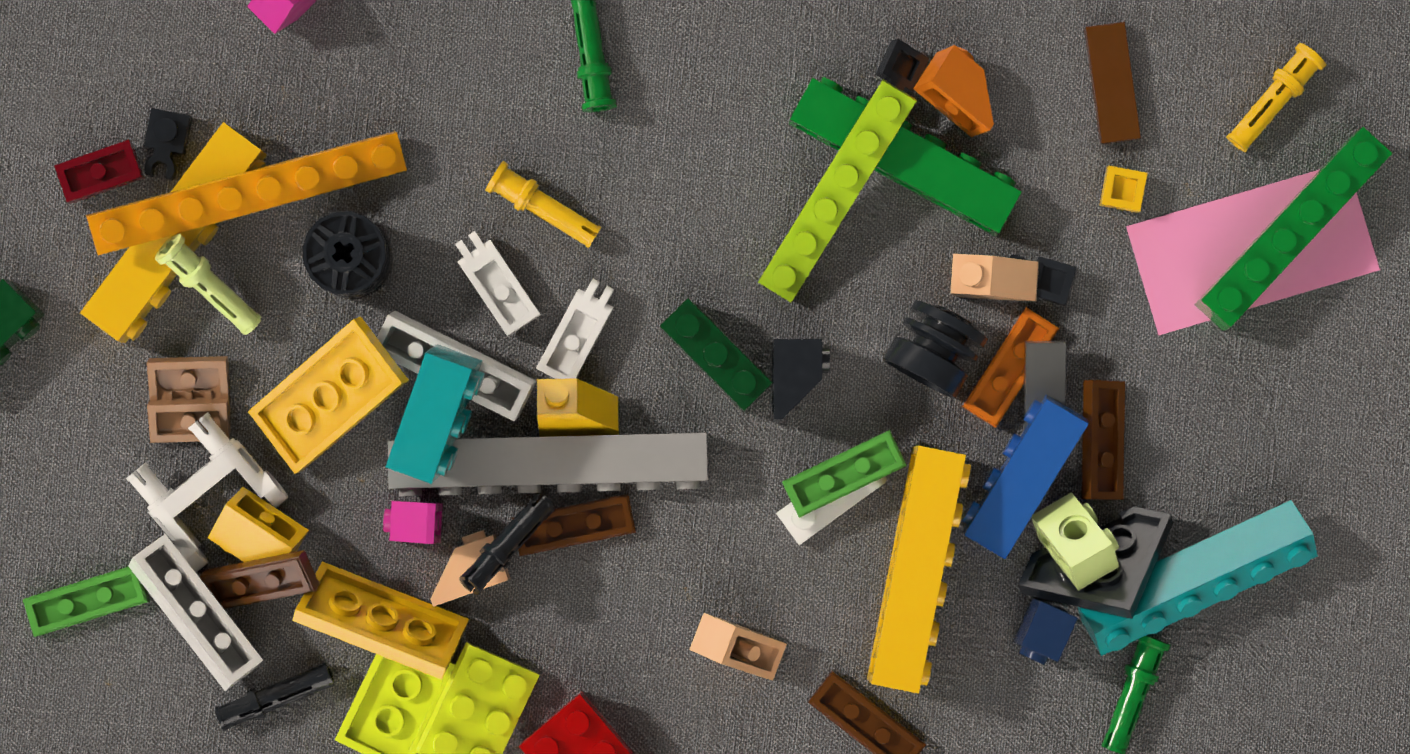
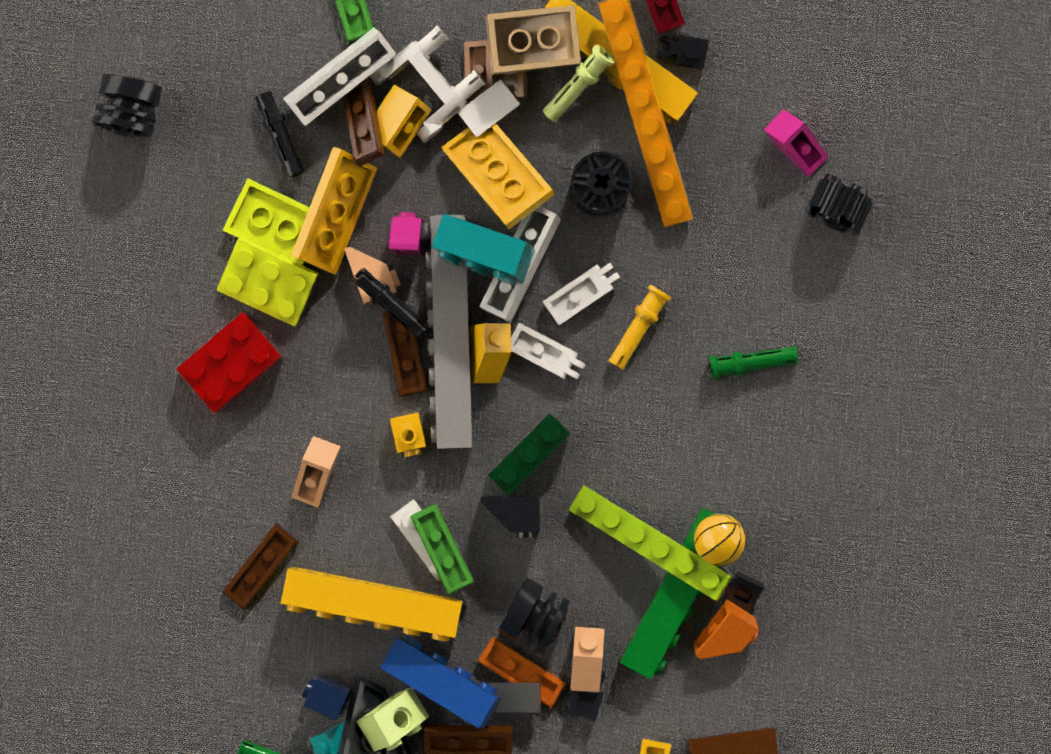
camera: 90 degrees right, 0 degrees up
(147, 346) = (532, 39): none -> tan slope
(241, 408) = (488, 108): none -> white sticker
(688, 519) = (408, 434): none -> yellow brick
(833, 94) = (719, 539): none -> yellow piece

